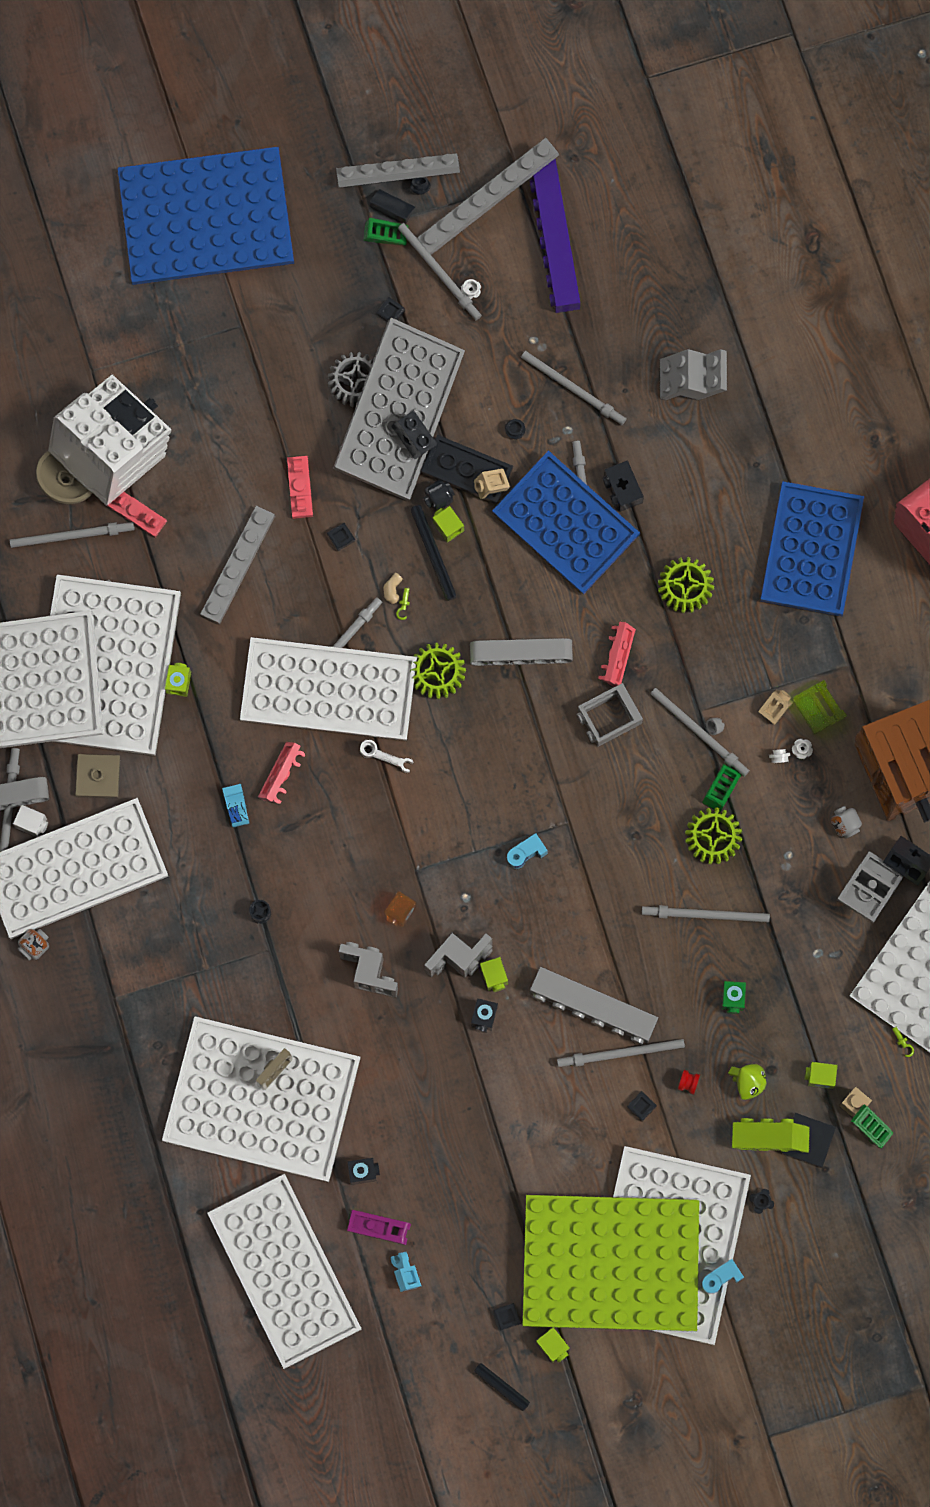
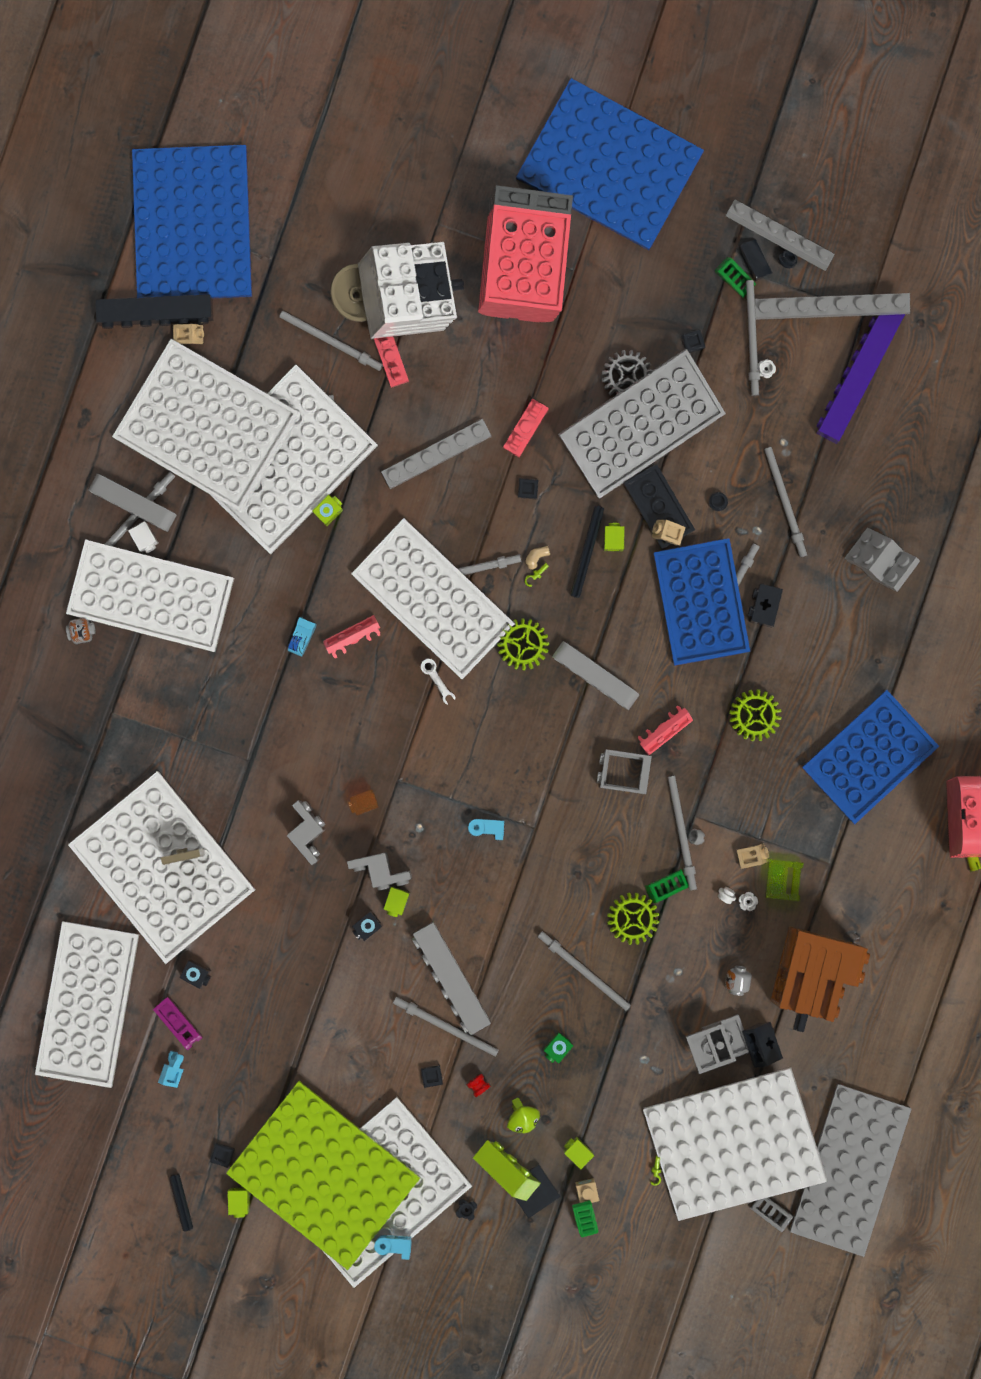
camera: 35 degrees right, 10 degrees up
(98, 776) = (218, 538): dark tan plate -> none
(191, 337) = (525, 254): none -> coral piece
(258, 908) = (261, 726): black wheel -> none
(414, 434) = (637, 453): black brick -> none
(438, 495) = (623, 511): black head -> none

